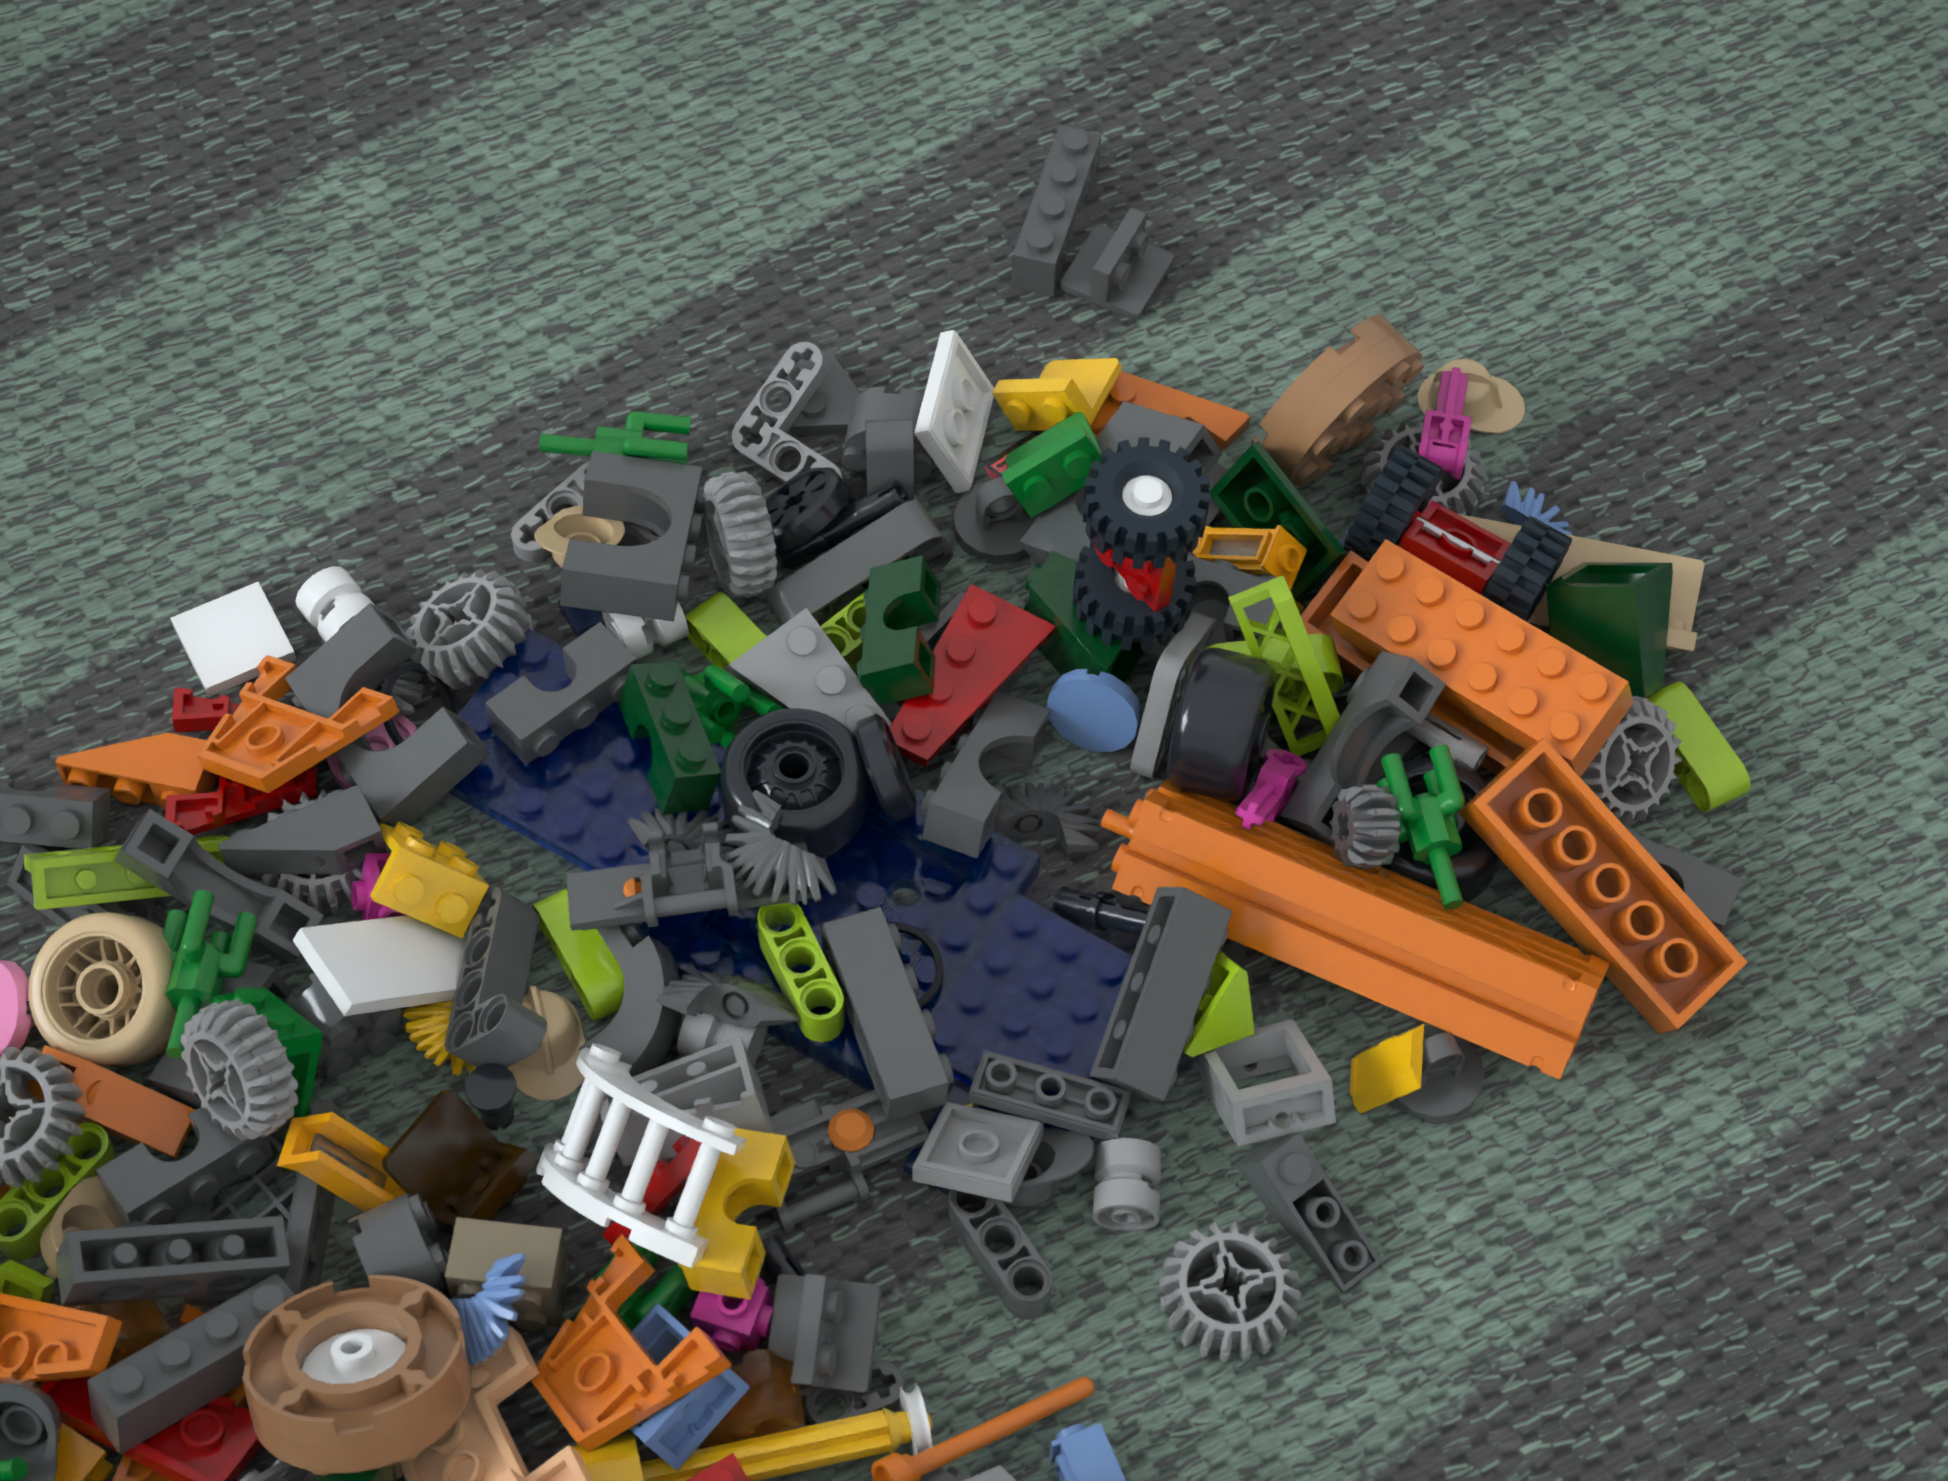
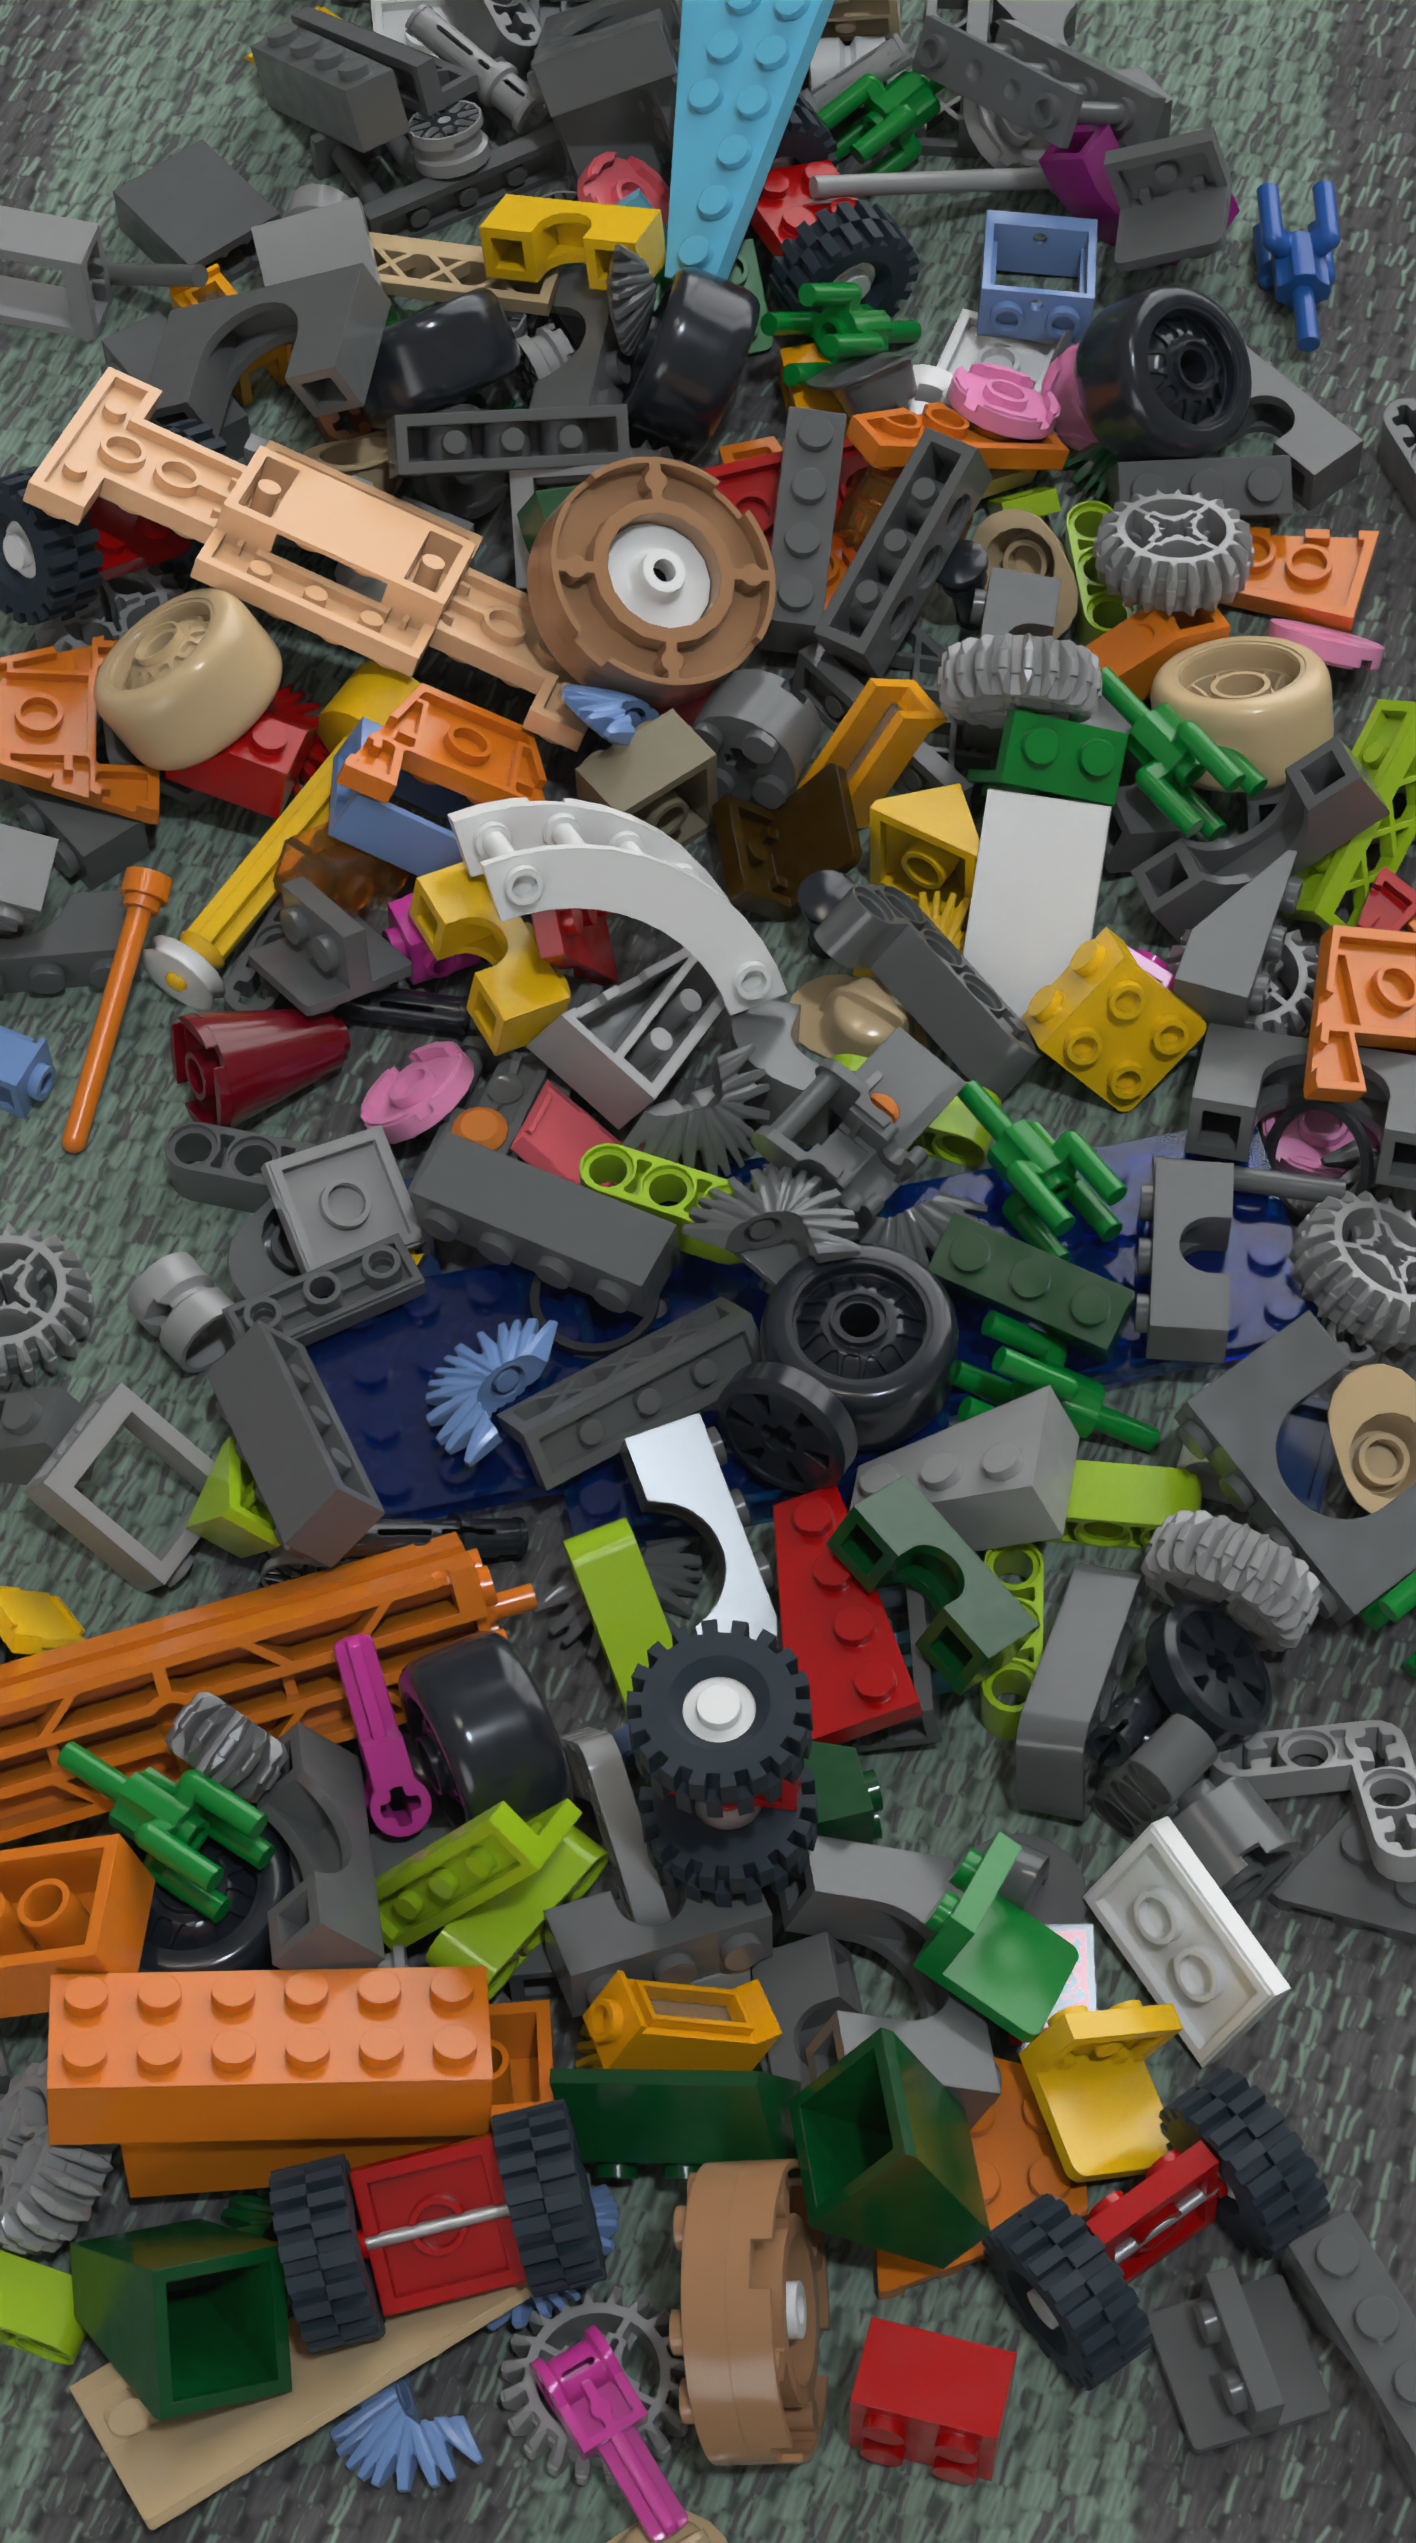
camera: 140 degrees right, 0 degrees up
(385, 1069) = (924, 844): none -> yellow slope
(463, 707) = (1281, 1183): none -> dark grey bar
(583, 798) = (1044, 1175): none -> green plant
(799, 1089) = (559, 1135): none -> coral piece
(855, 1204) = (420, 1093): none -> bright pink tile
(935, 869) = (632, 1391): none -> dark grey fence
(940, 1317) = (252, 1059): none -> dark red cone
(1009, 962) = (483, 1383): none -> medium blue hair
(1059, 782) = (618, 1598): none -> lime beam
(1106, 314) = (1224, 2165): none -> black plate
(1224, 387) = (889, 2156): none -> dark green slope
(1277, 331) = (930, 2401): none -> red brick

